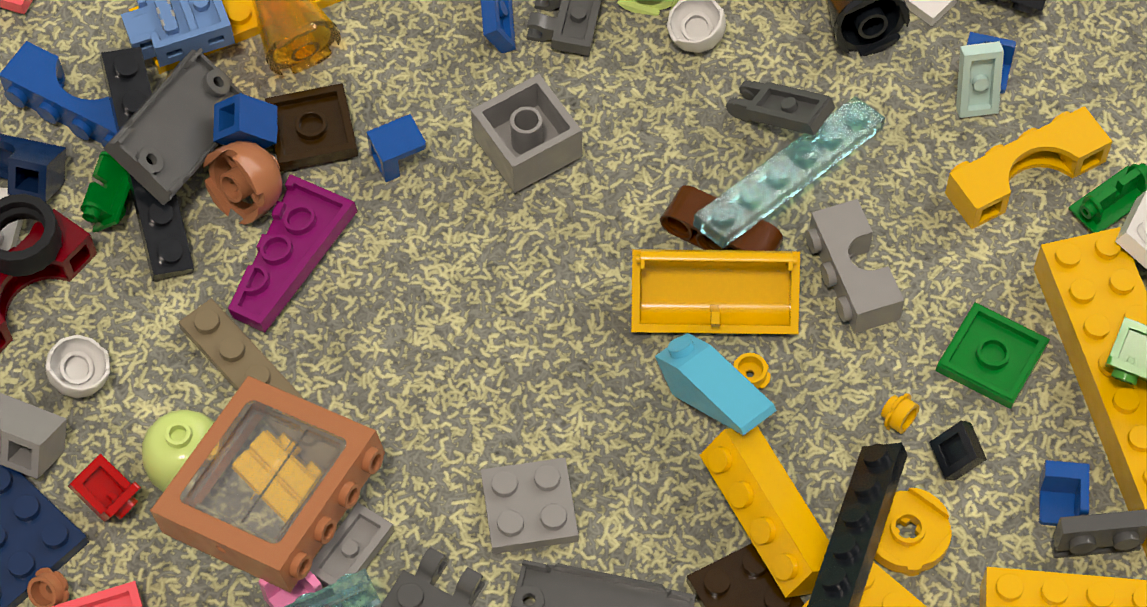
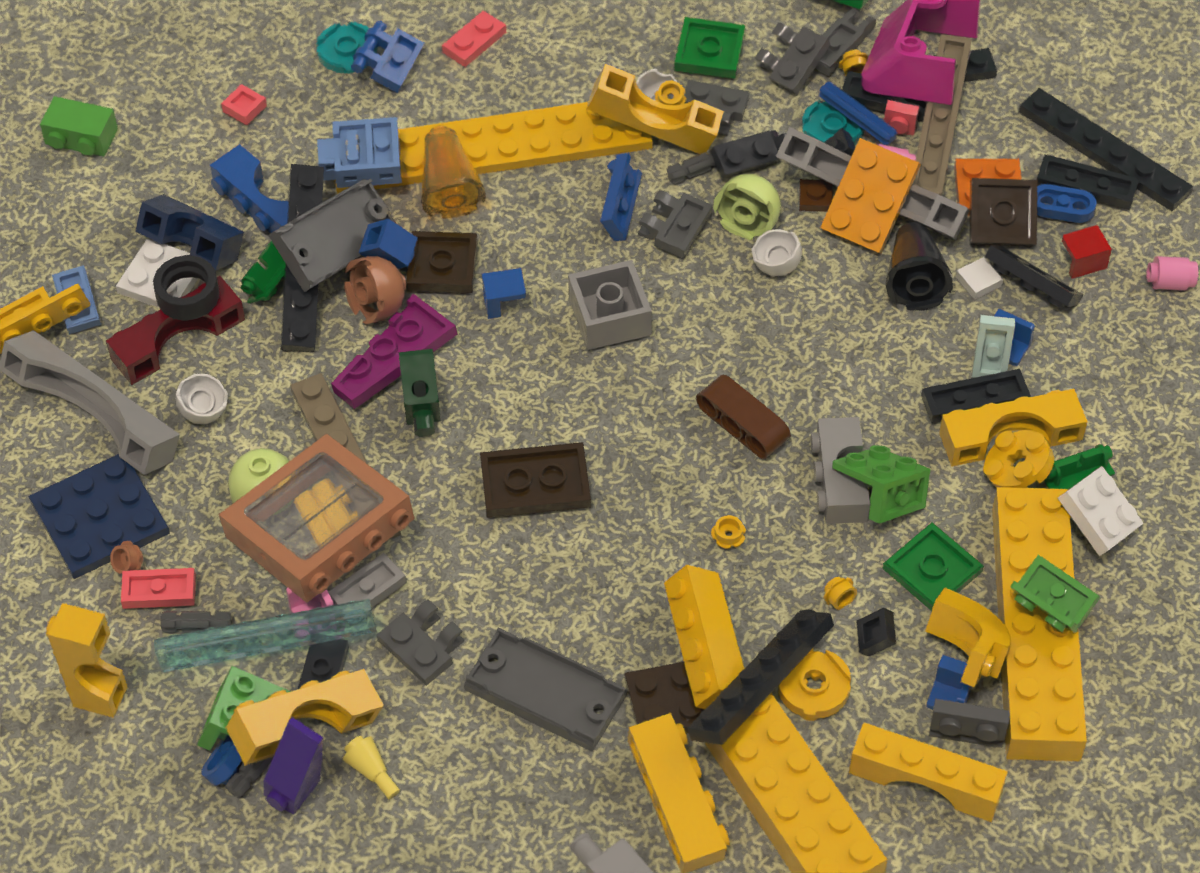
camera: 15 degrees right, 5 degrees down
(105, 489) = (193, 495): red bracket -> none
(339, 292) = (420, 390): none -> dark green torso
(506, 366) = (535, 480): none -> dark brown plate
(529, 505) = (518, 590): light grey plate -> none
(712, 384) = (690, 529): medium azure slope -> none
(715, 291) = (720, 461): yellow container -> none
(781, 106) = (823, 331): dark grey hinge -> none
(788, 172) = (811, 383): clear light blue plate -> none
(922, 260) = (897, 481): none -> bright green bracket
(971, 139) = (973, 393): none -> black plate
(1039, 188) = (1013, 446): none -> yellow plate
(1073, 422) = (974, 631): none -> yellow arch

